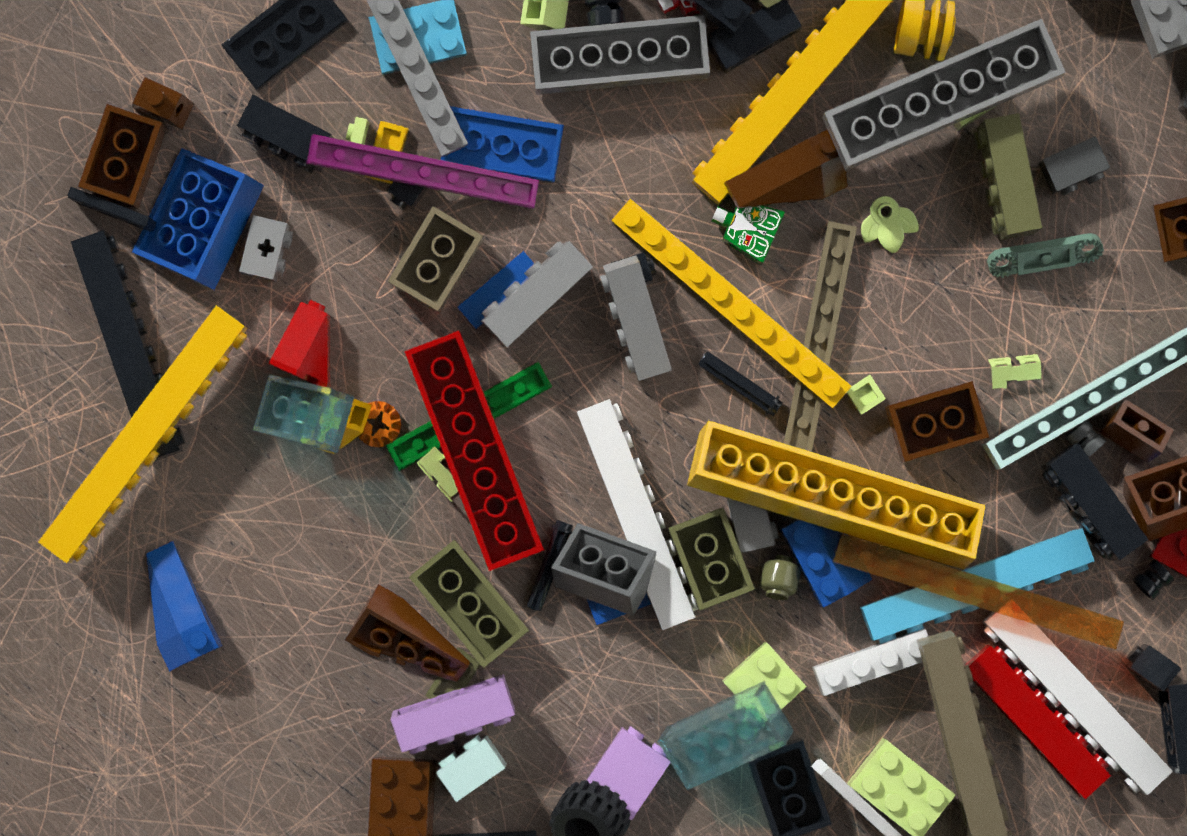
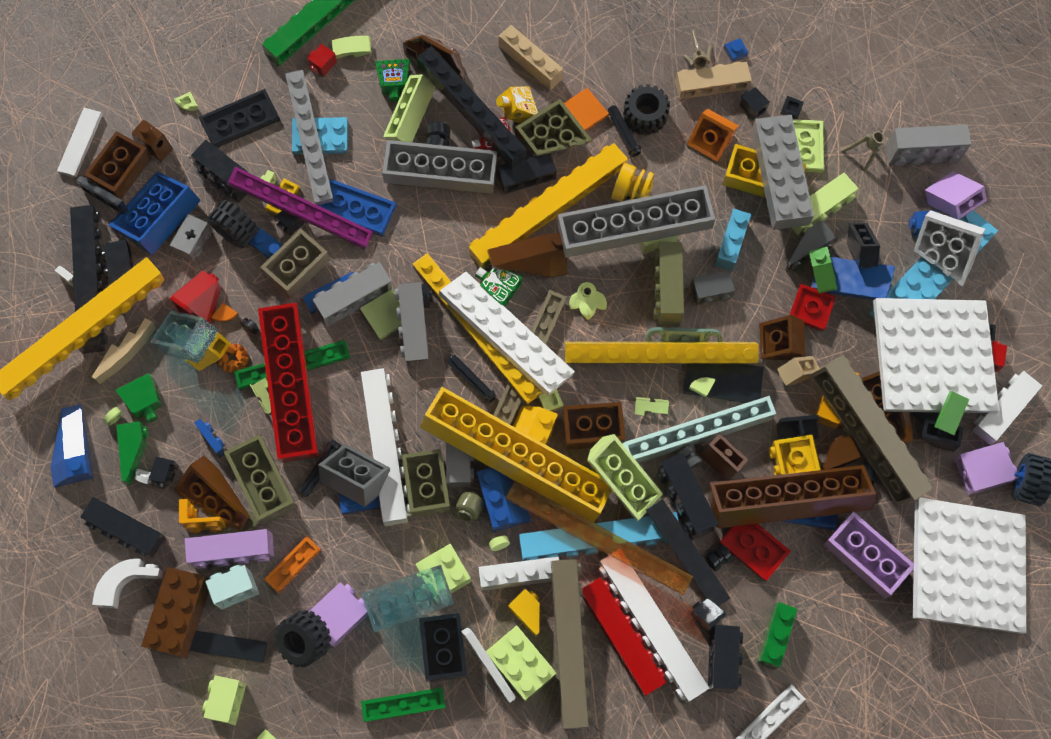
camera: 10 degrees right, 15 degrees down
(48, 125) = (79, 142): none -> white tile
(94, 349) = (65, 275): none -> white tile
(169, 316) = (117, 258): none -> black brick
(195, 22) = (186, 102): none -> yellowish green tile
(208, 460) = (119, 356): none -> tan slope
(226, 552) = (112, 416): none -> yellowish green tile
(261, 515) = (141, 397): none -> green torso
(267, 587) = (131, 448): none -> green slope
(288, 712) = (123, 527): none -> black brick
(295, 796) = (113, 581): none -> white arch
(297, 630) = (142, 476): none -> white tile
(323, 620) = (162, 472): none -> black brick
(327, 219) = (233, 223): none -> black tyre
(347, 358) = (224, 313): none -> orange tile
(381, 675) = (190, 522): none -> light orange bracket
(383, 234) = (265, 243): none -> blue plate
(389, 368) = (250, 325): none -> black tile
(389, 561) = (206, 430): none -> blue plate
(544, 713) = (292, 564): none -> orange tile
(586, 309) = (382, 314): none -> yellowish green tile
(779, 307) = (506, 333): none -> white plate
(834, 623) = (499, 543): none -> yellowish green tile
(848, 437) = (536, 422): none -> yellow slope
(894, 711) = (526, 610): none -> yellow slope
(997, 494) = (623, 475): none -> yellowish green slope
(1016, 288) = (661, 352): none -> yellow brick
(1086, 326) = (702, 385): none -> yellowish green tile
(1092, 81) = (732, 239): none -> medium azure brick
(1108, 585) = (687, 552): none -> black tile
(1114, 307) = (732, 380): none -> black tile

